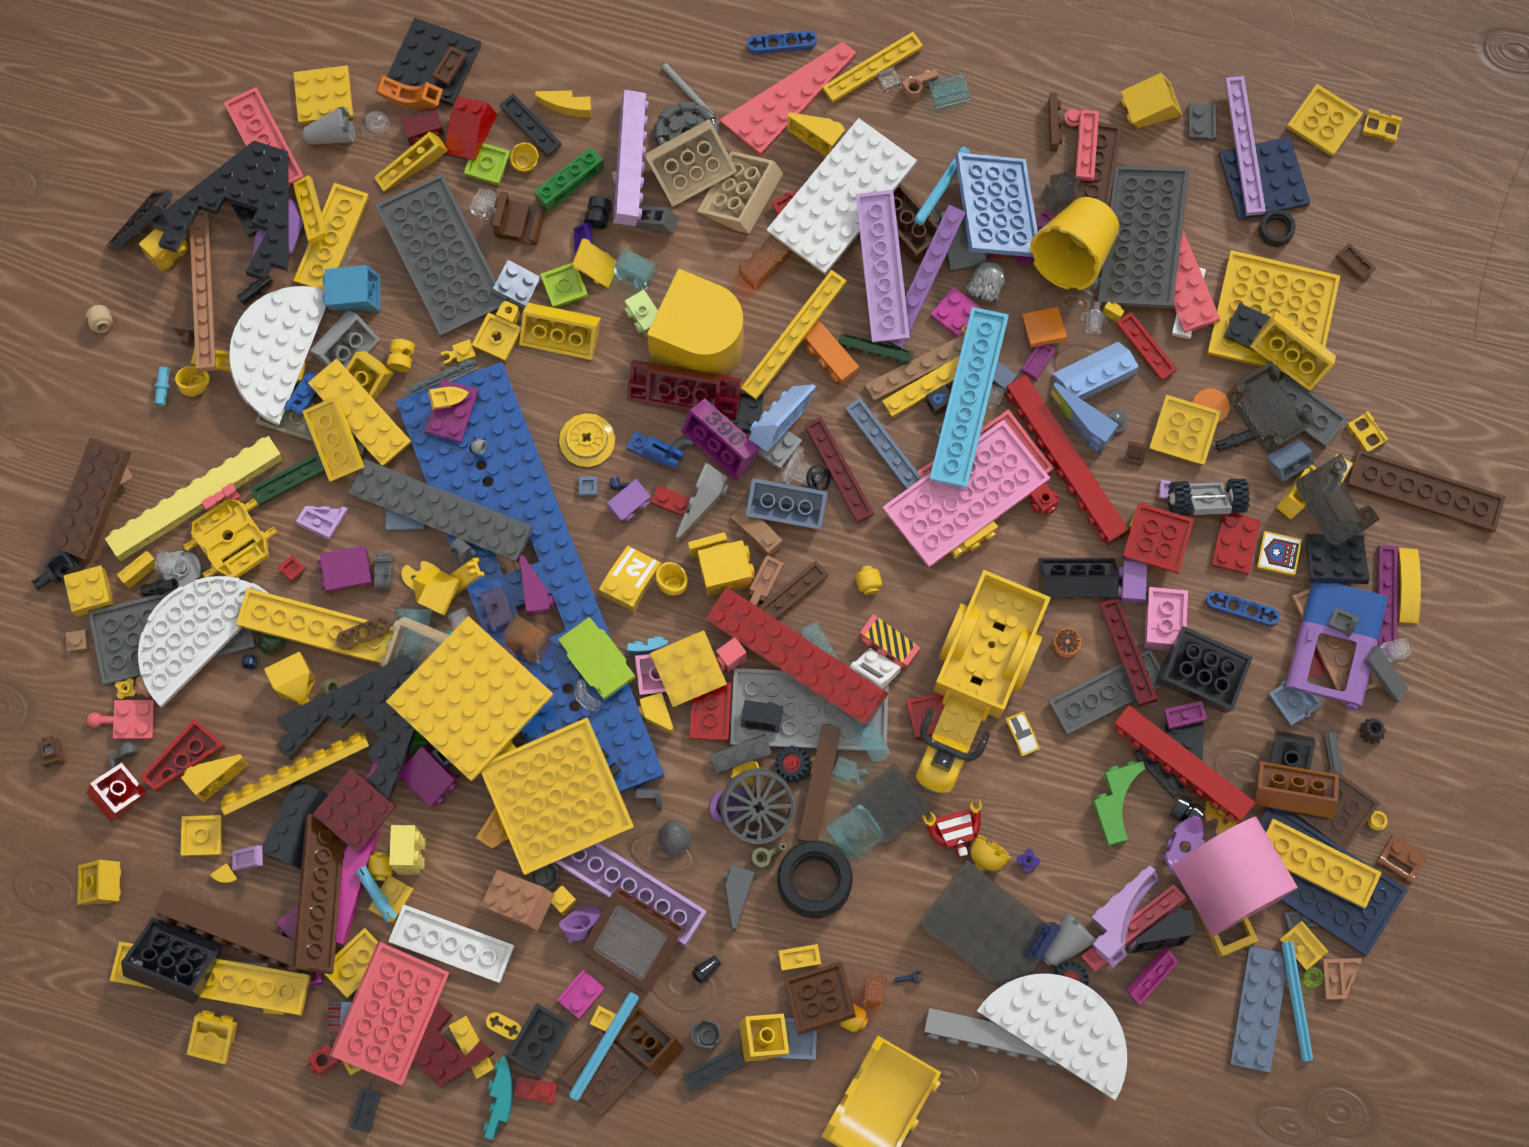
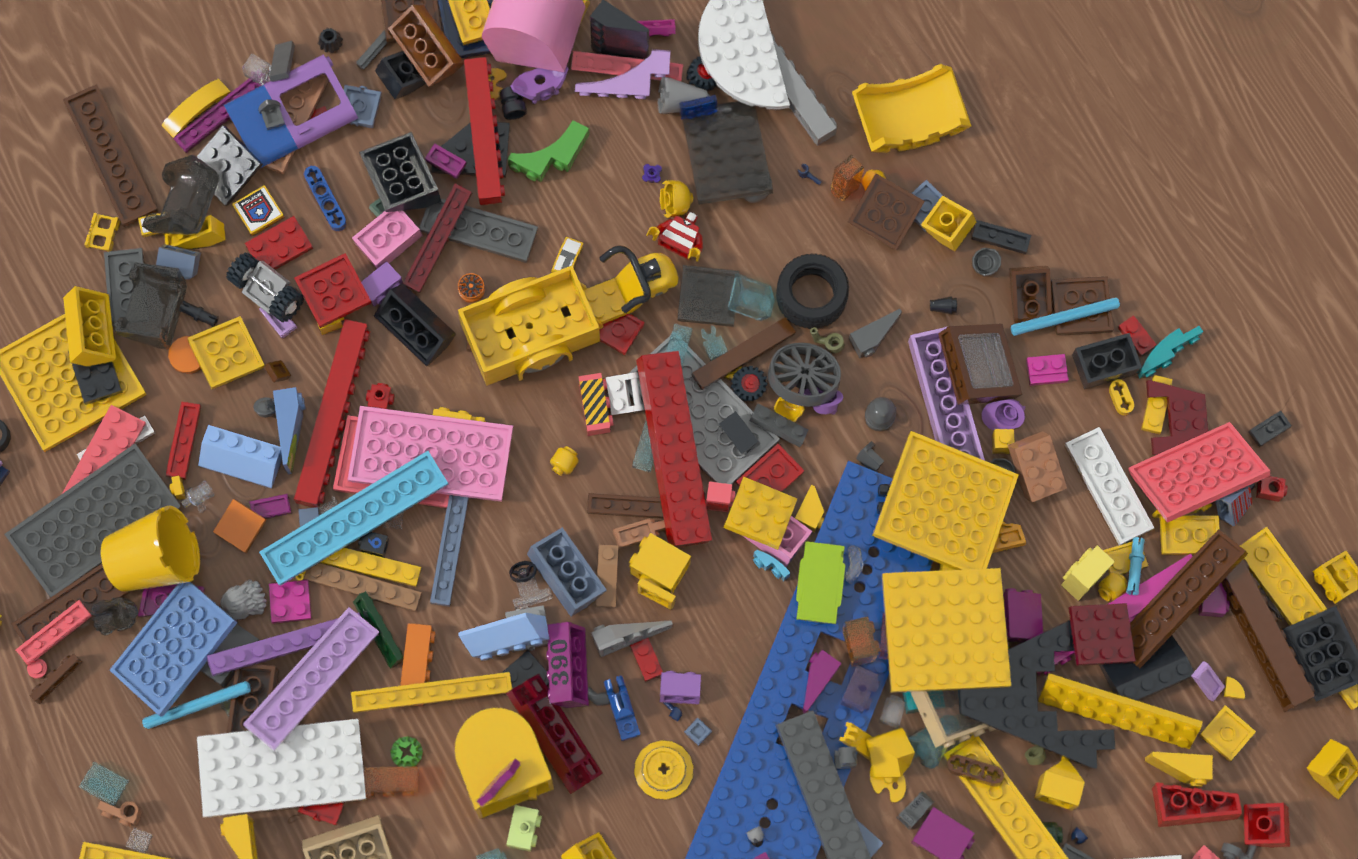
camera: 140 degrees left, 0 degrees up
(602, 1018) = (1047, 337): yellow plate -> none
(629, 578) = (734, 629): yellow slope -> none
(671, 579) = (706, 595): yellow hat -> none
(678, 291) = (498, 782): none -> magenta tile
(781, 294) = (407, 761): none -> bright green gear
(799, 957) = (872, 254): yellow plate -> none
(839, 469) = (501, 564): dark red plate -> none

